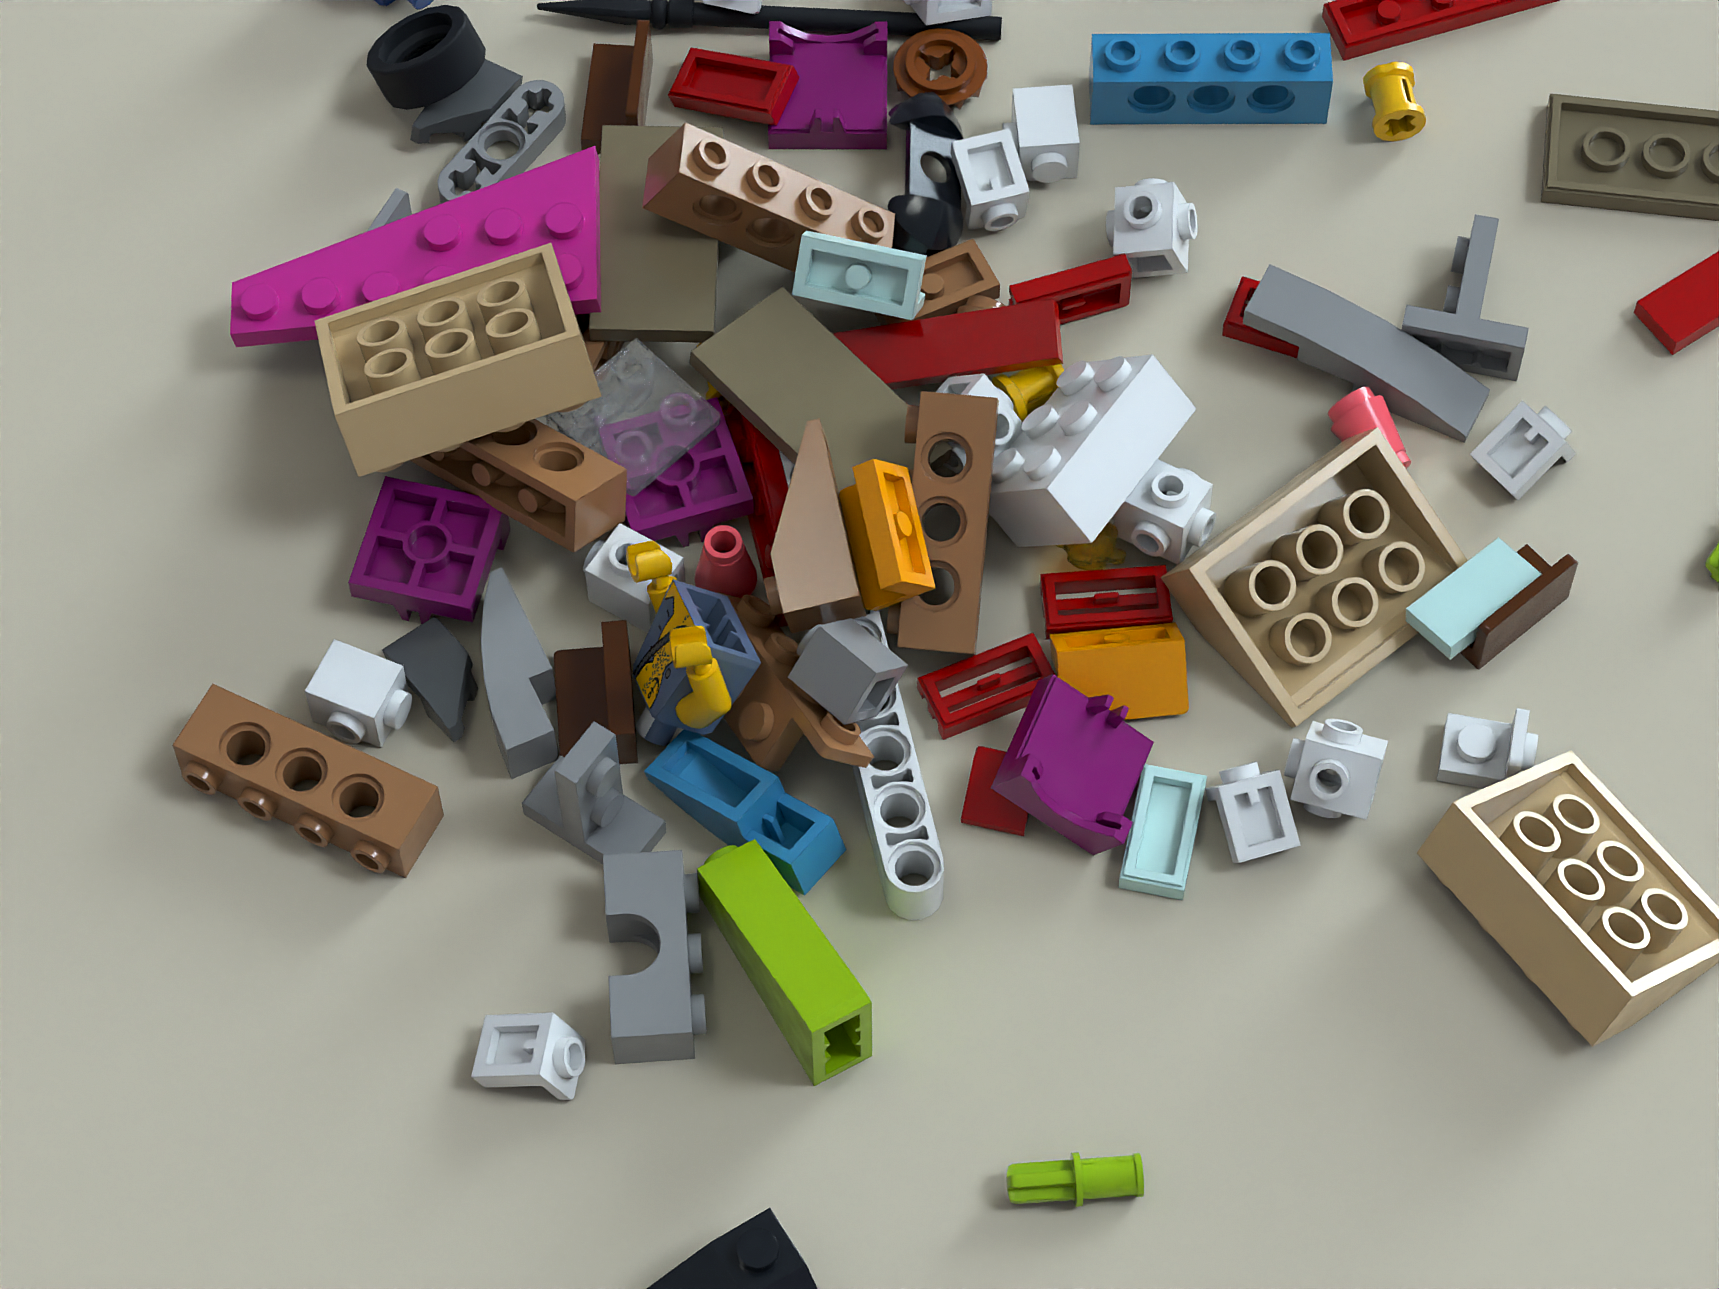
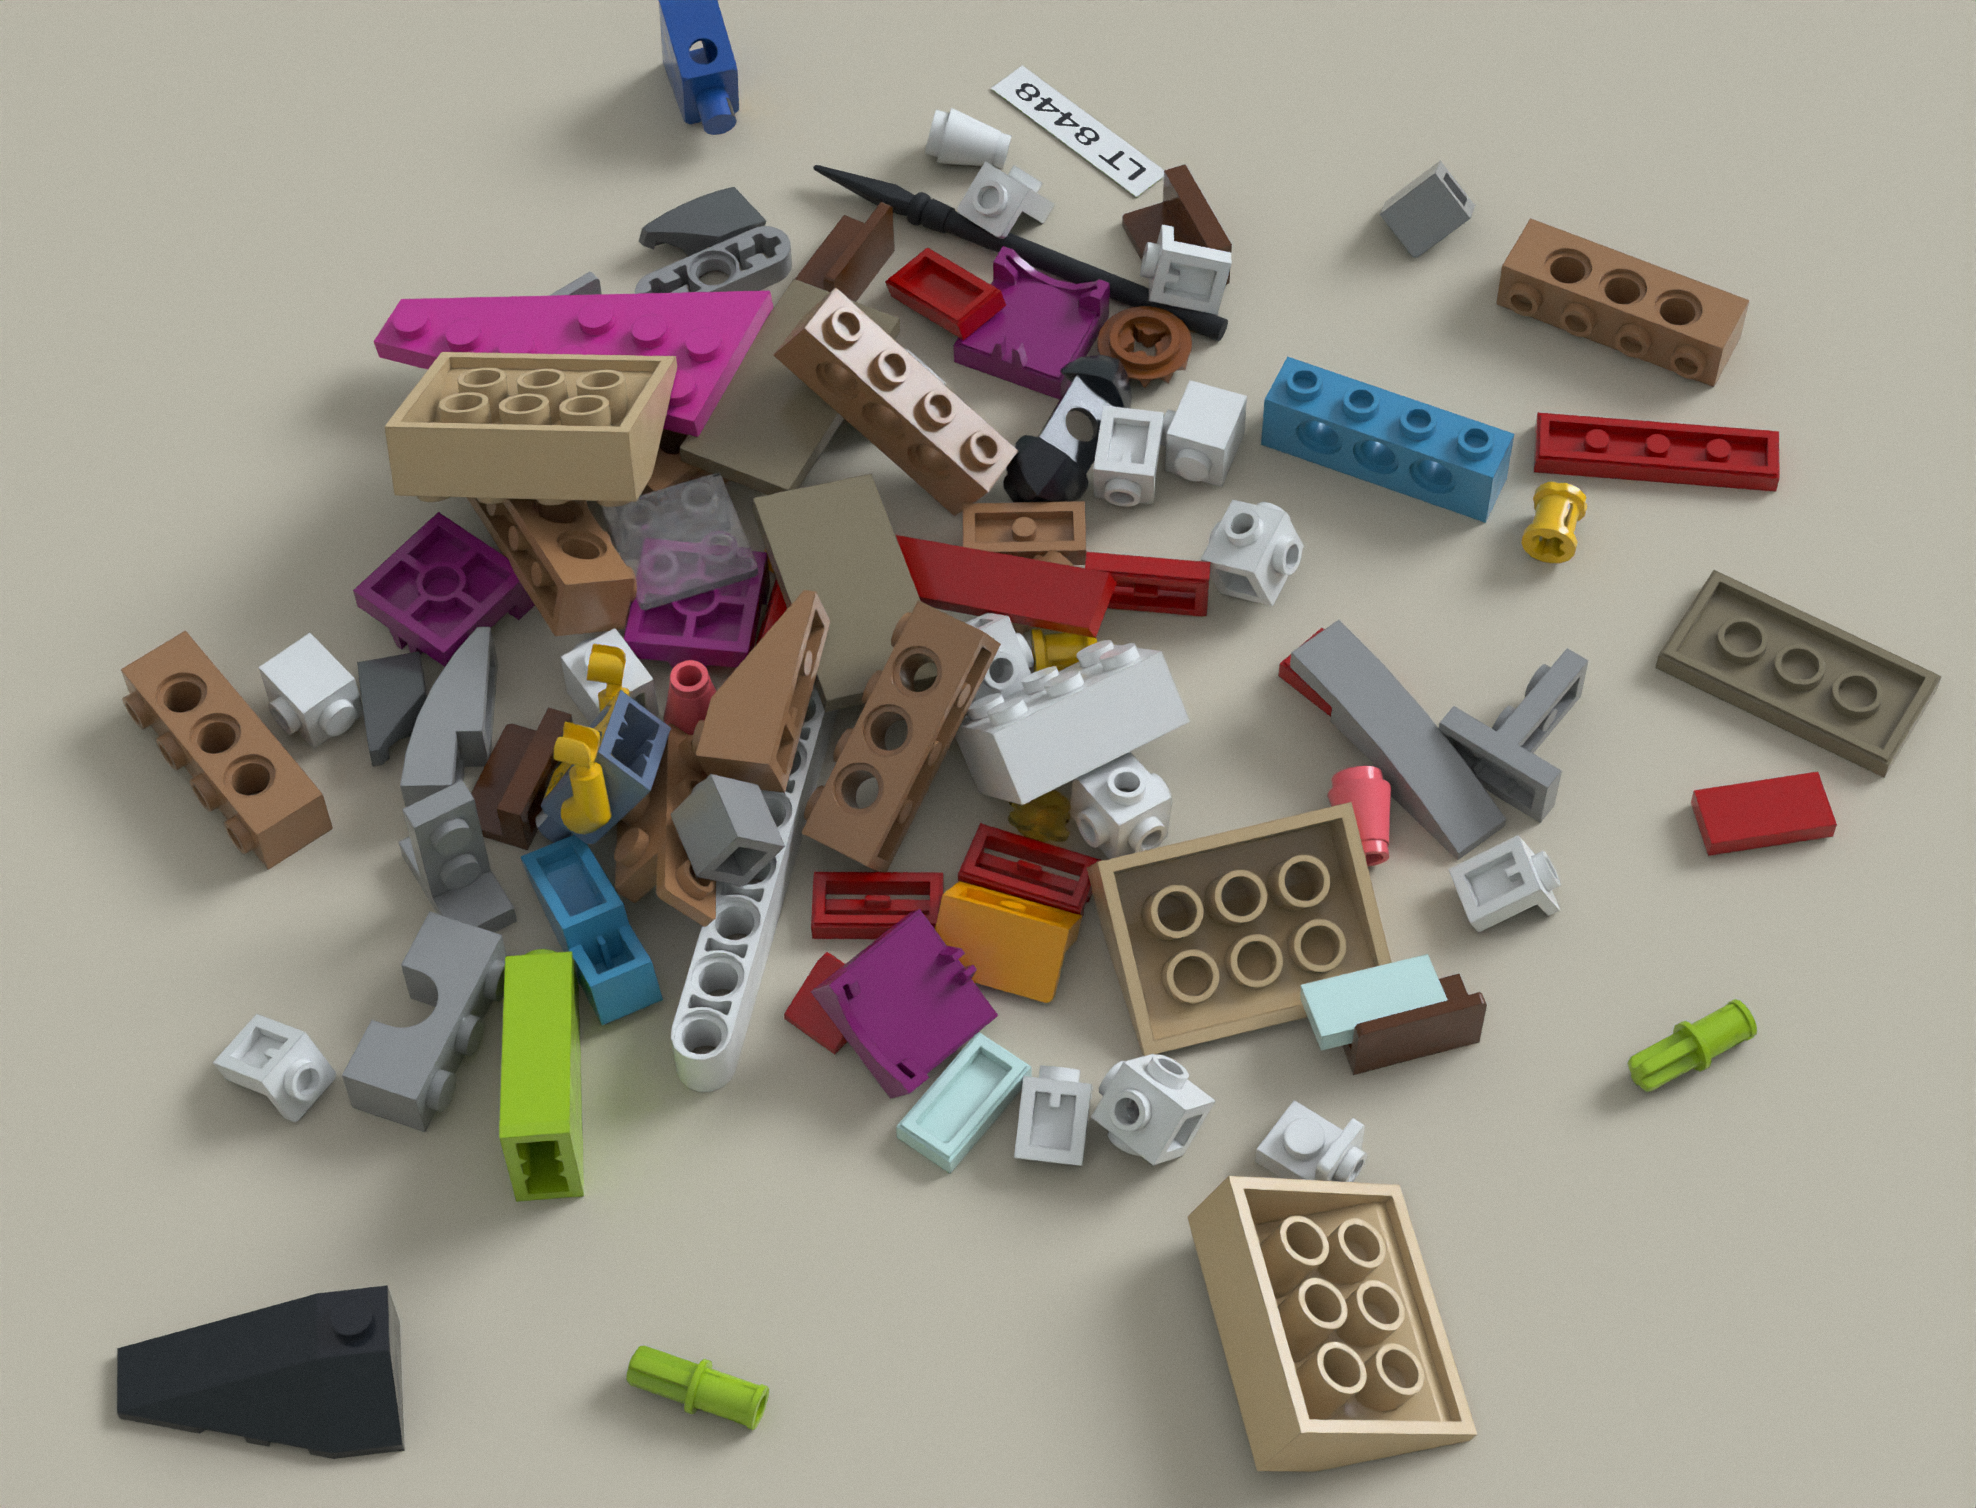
camera: 25 degrees right, 5 degrees down
(426, 57) = (684, 172): black tyre -> none
(859, 275) = (944, 489): light aqua panel -> none
(885, 535) = (832, 720): light orange panel -> none

